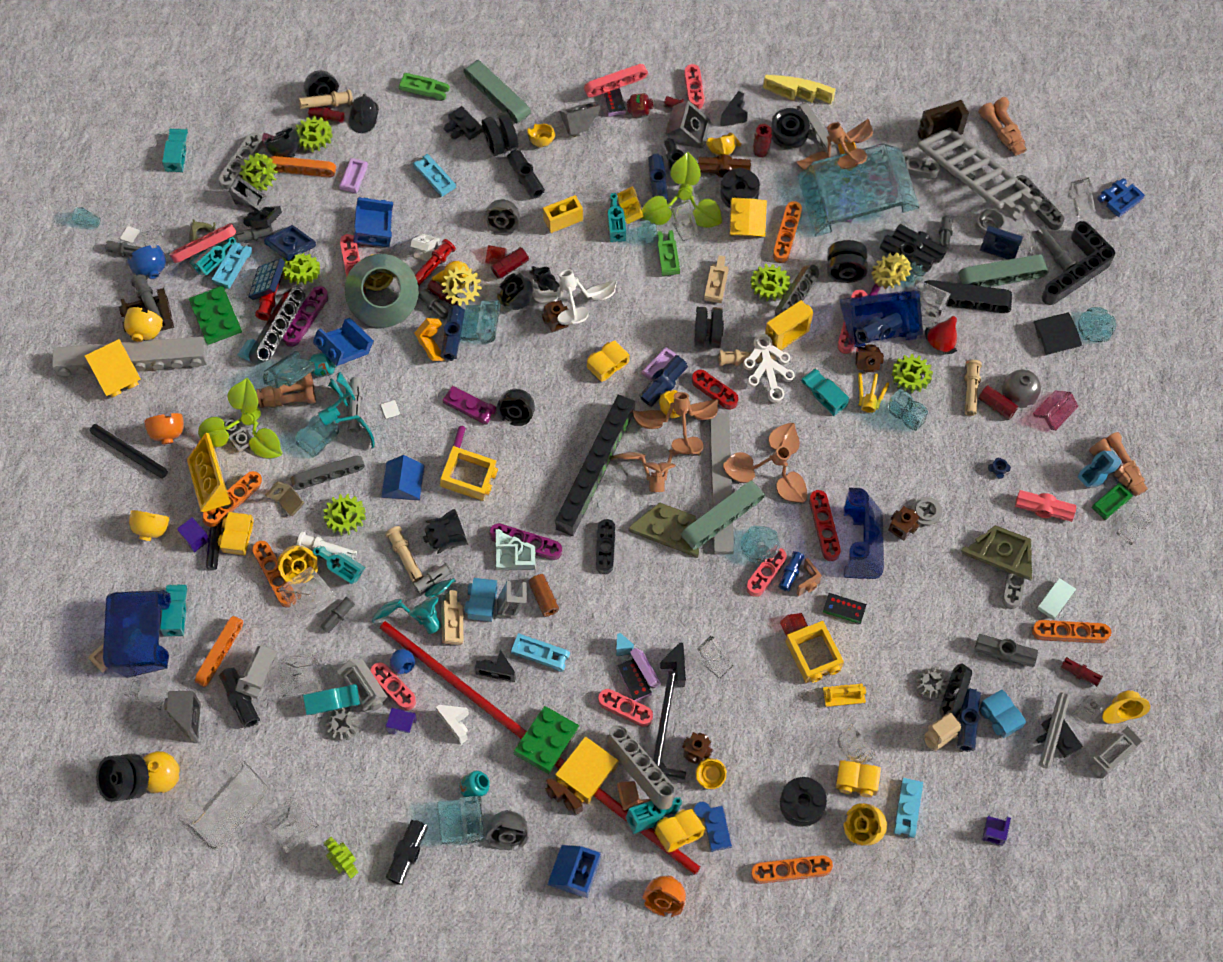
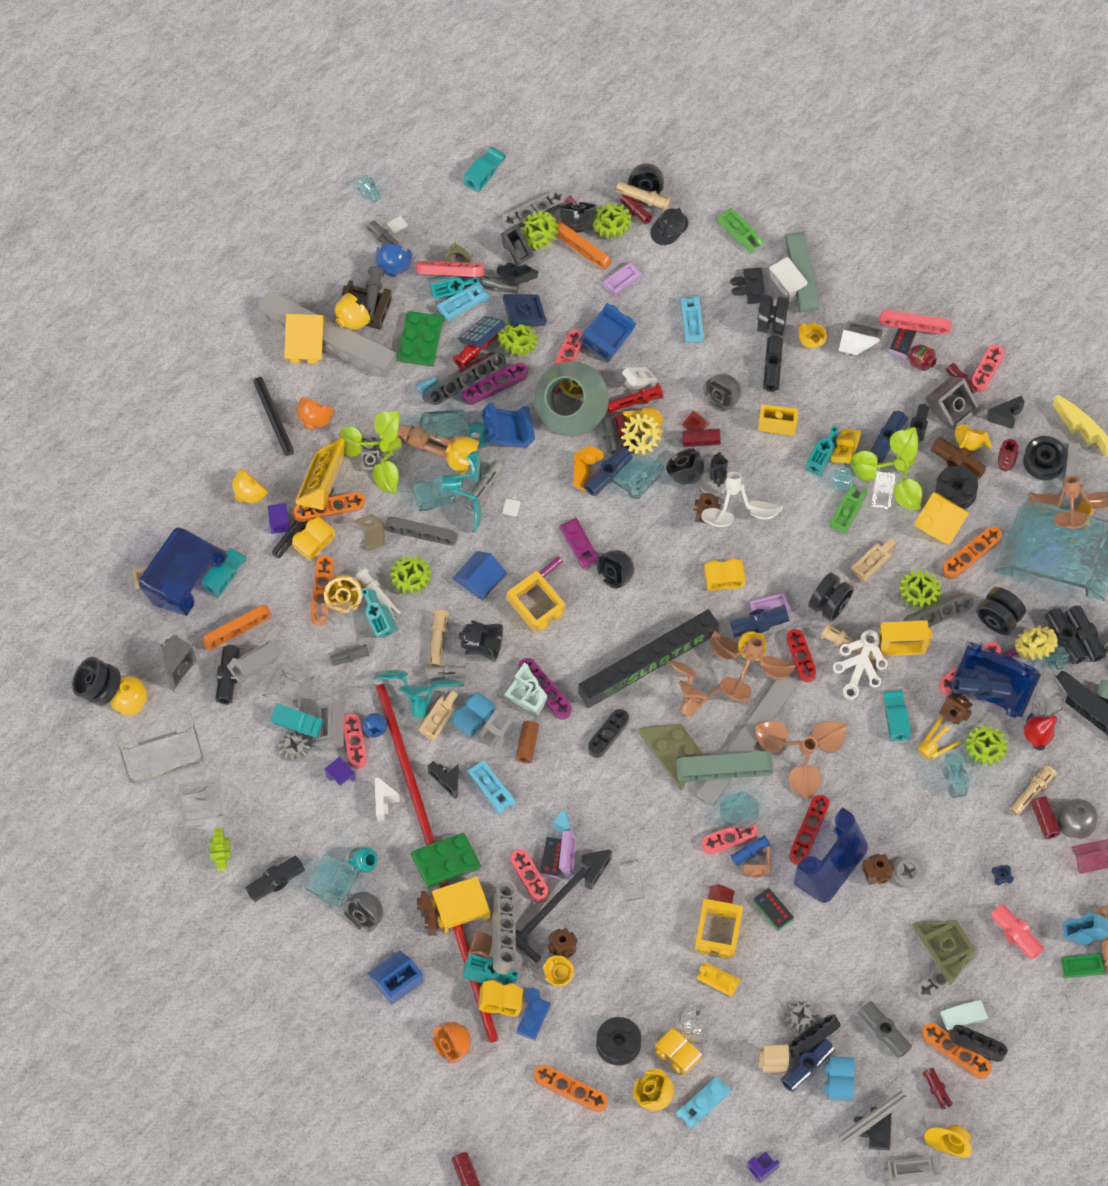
camera: 35 degrees right, 0 degrees up
(321, 386) = (458, 453): none -> yellow cylinder
(489, 101) = (787, 278): none -> white panel
(1073, 614) = (990, 1053): none -> black beam

